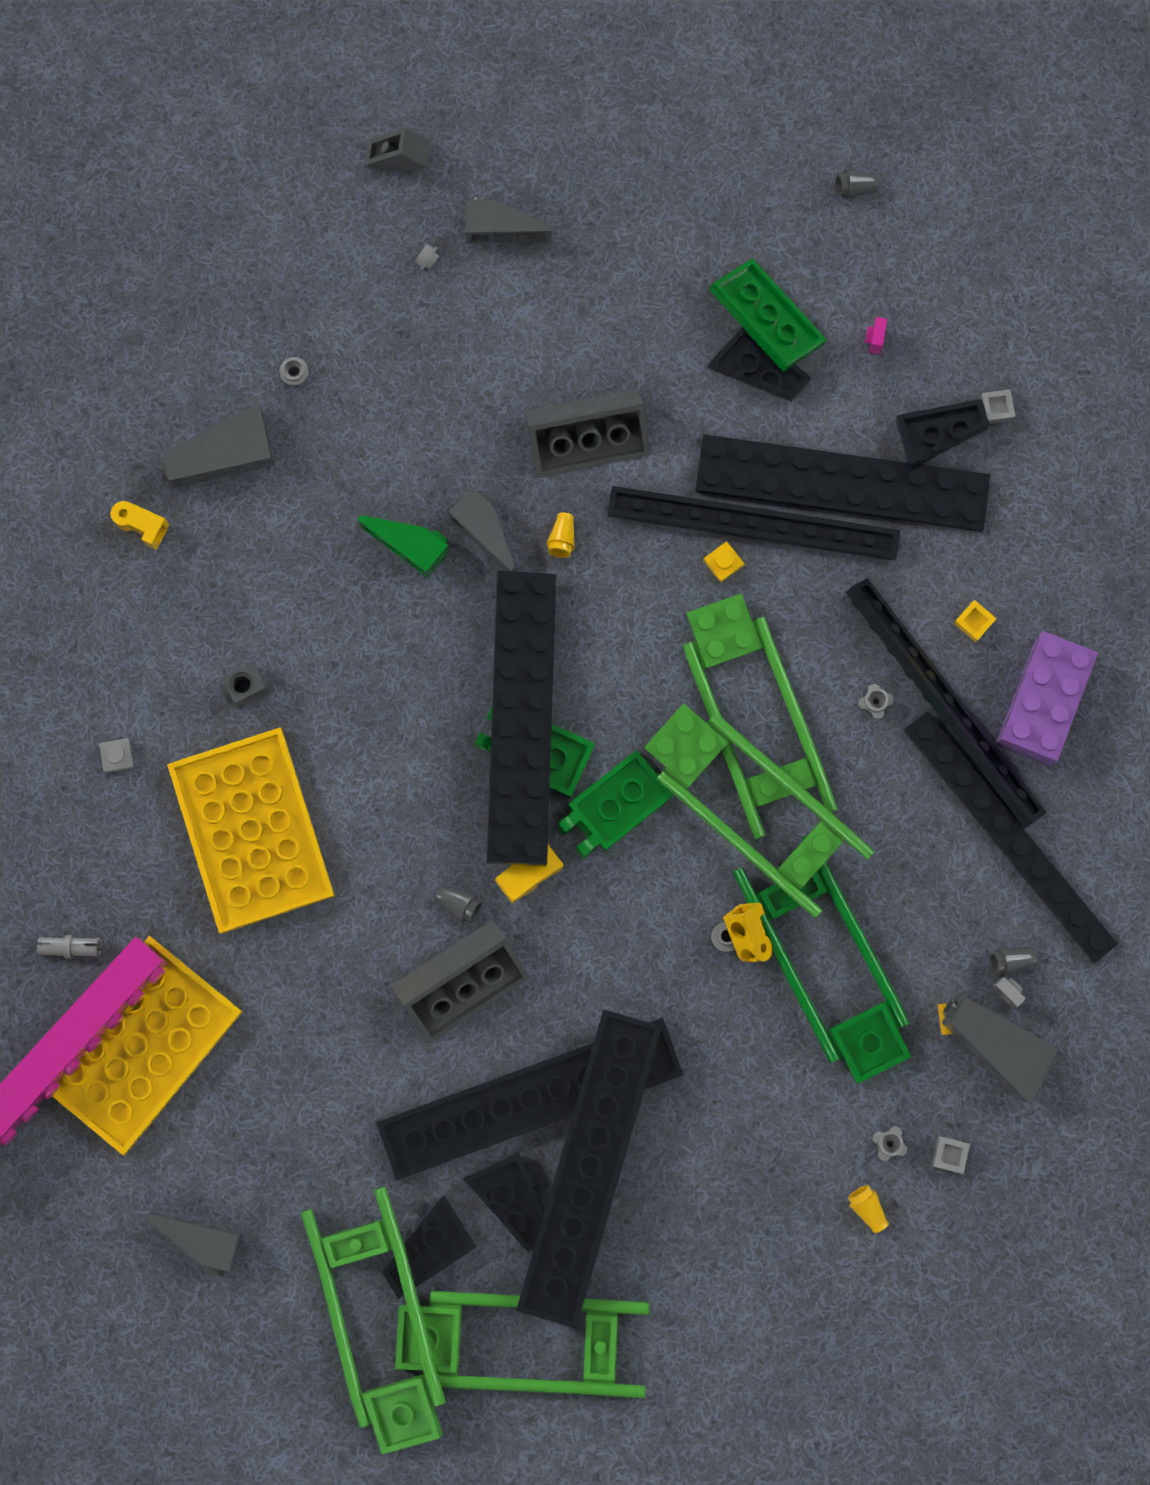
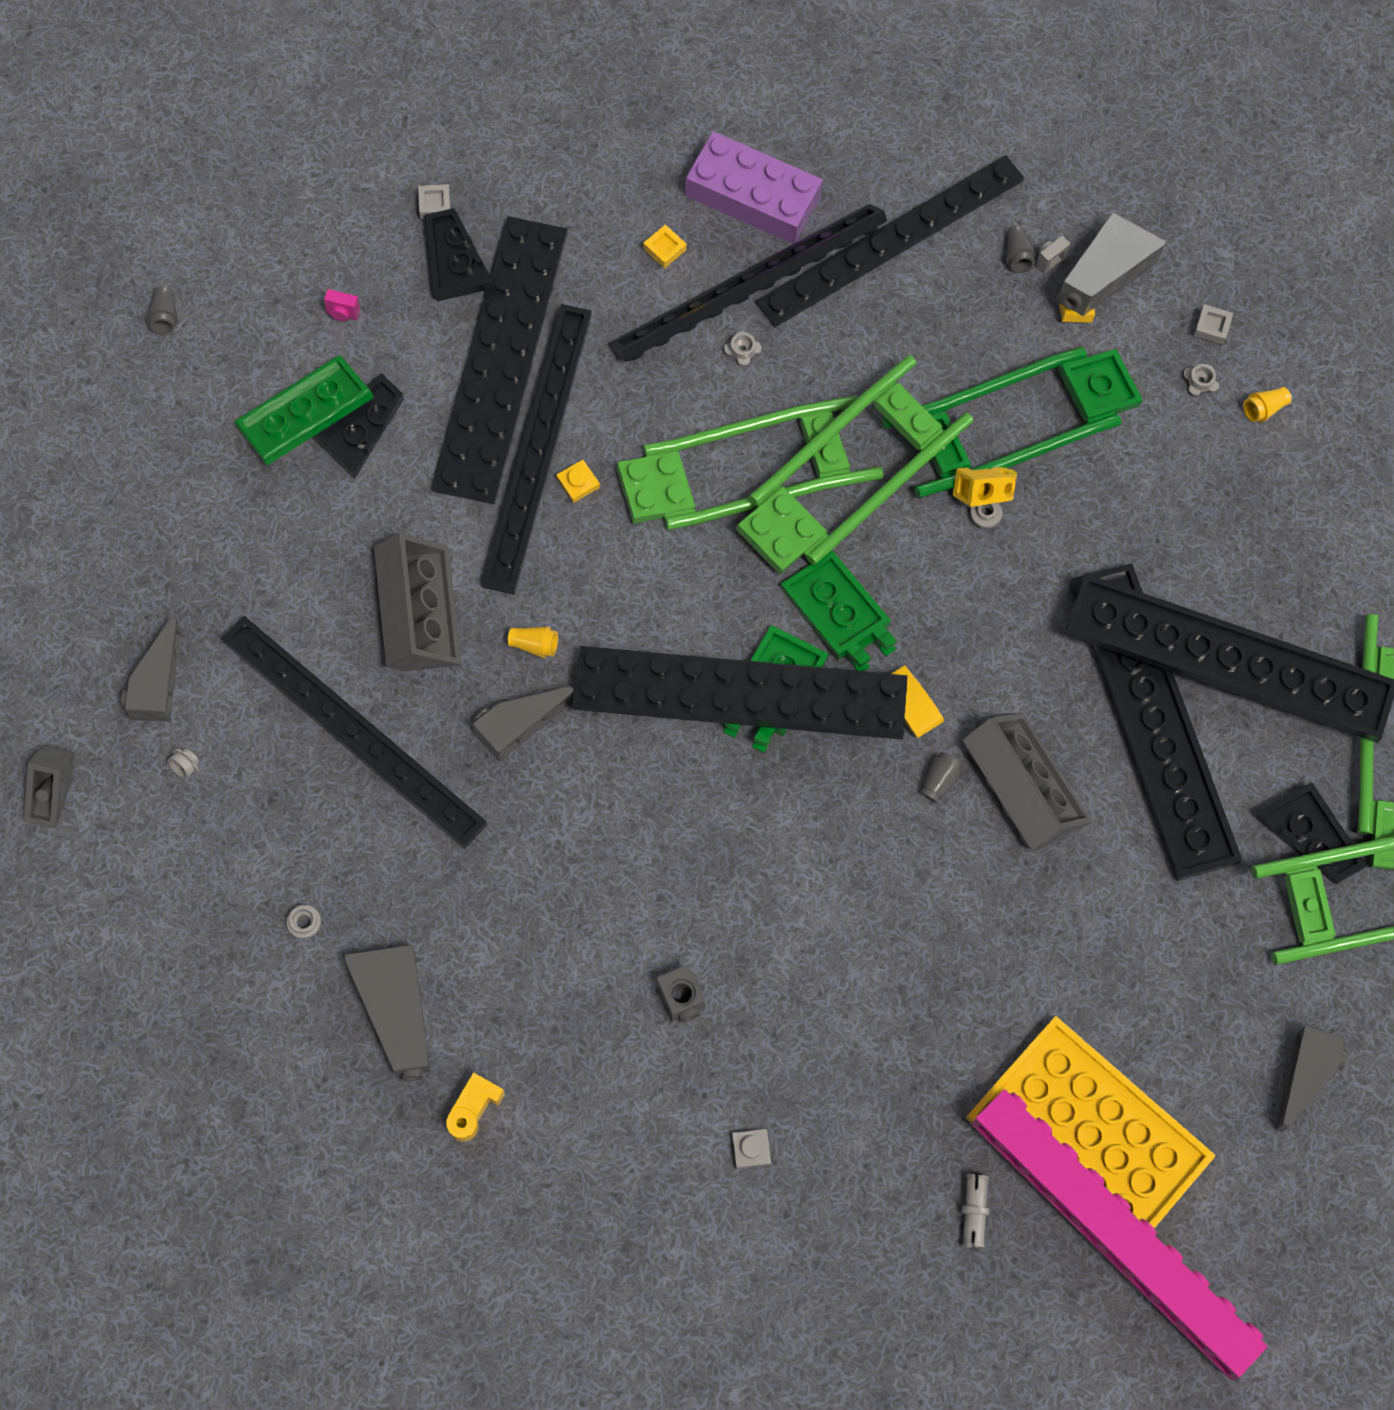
camera: 90 degrees left, 10 degrees down
(250, 830) = (848, 998): yellow plate -> none
(412, 543) = (531, 796): green slope -> none
(465, 392) = (354, 732): none -> black plate
(511, 1197) = (1259, 744): black wing -> none

